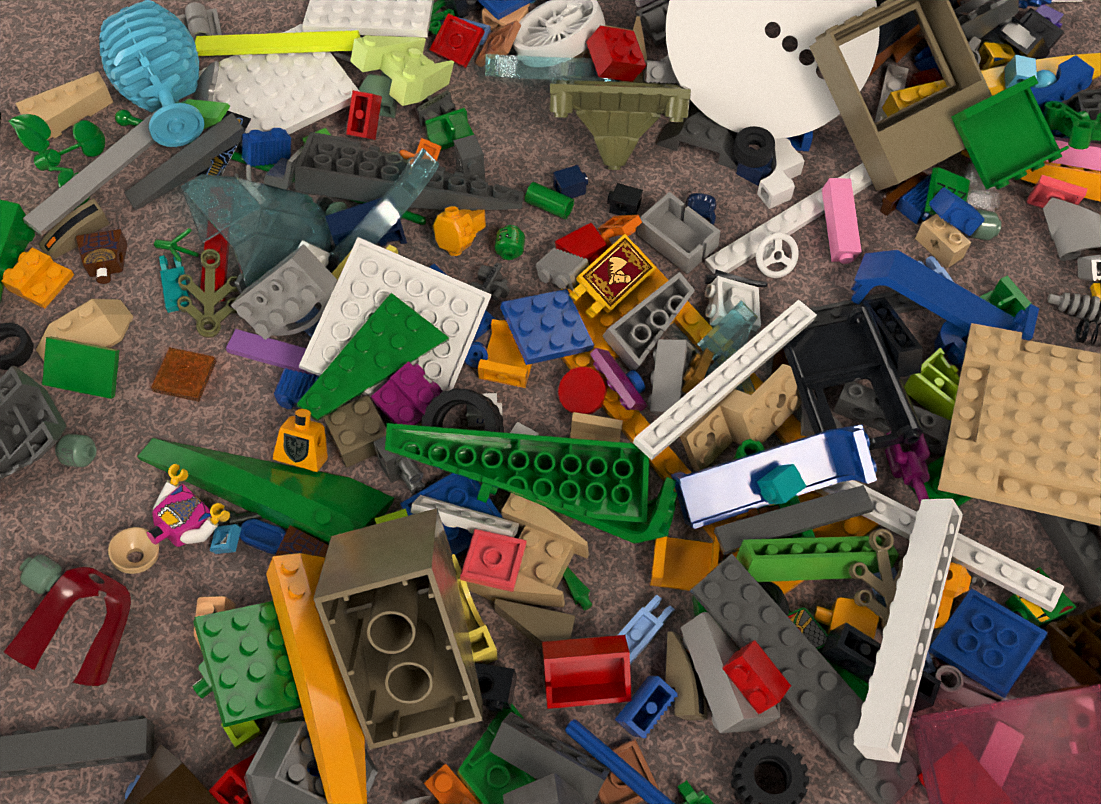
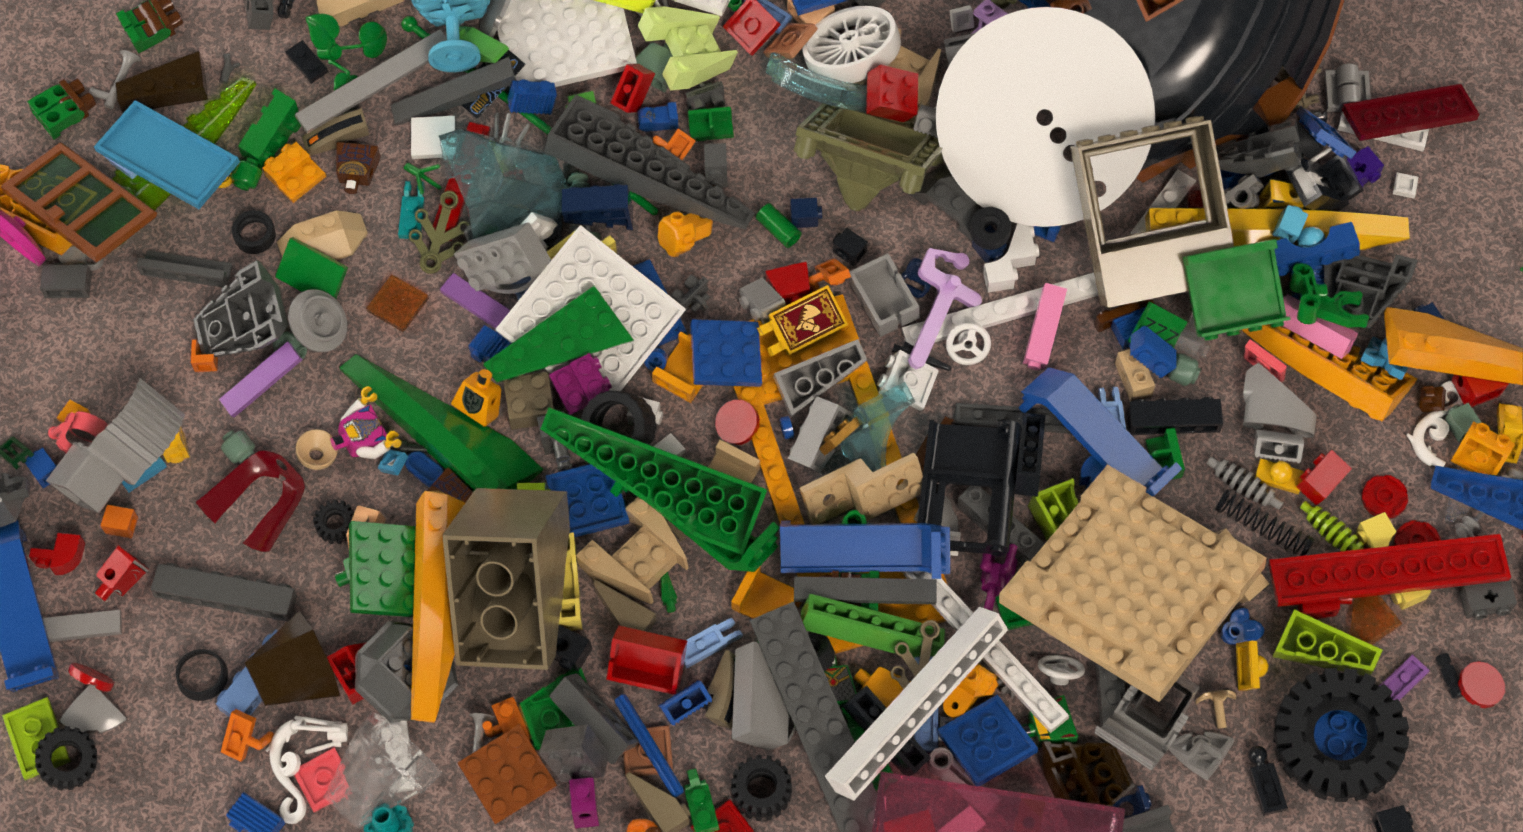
camera: 20 degrees right, 5 degrees up
(26, 176) = (306, 61): none -> black plate
(49, 493) = (260, 379): none -> medium lavender tile
(99, 414) = (317, 320): none -> light grey piece
(162, 619) = (325, 513): none -> black tyre
(171, 211) = (426, 133): none -> white tile
(242, 733) = (363, 622): lime plate -> none
(283, 172) = (536, 134): dark grey panel -> none
(392, 205) = (625, 197): clear light blue arch -> none
(398, 137) = (658, 118): none -> blue leg
(465, 518) = (594, 505): white plate -> none
(493, 560) = (603, 547): coral tile -> none
(509, 242) = (725, 259): green head -> none
(618, 380) = (770, 421): magenta tile -> none
(723, 380) = (859, 449): white plate -> none
(737, 213) = (949, 289): none -> lavender piece
(756, 677) = (775, 704): red brick -> none
(781, 484) = (864, 557): teal brick -> none
(986, 270) = (1182, 414): none -> black brick
(1019, 545) = (1060, 672): none -> white piece
(1083, 30) = (1405, 185): none -> white tile

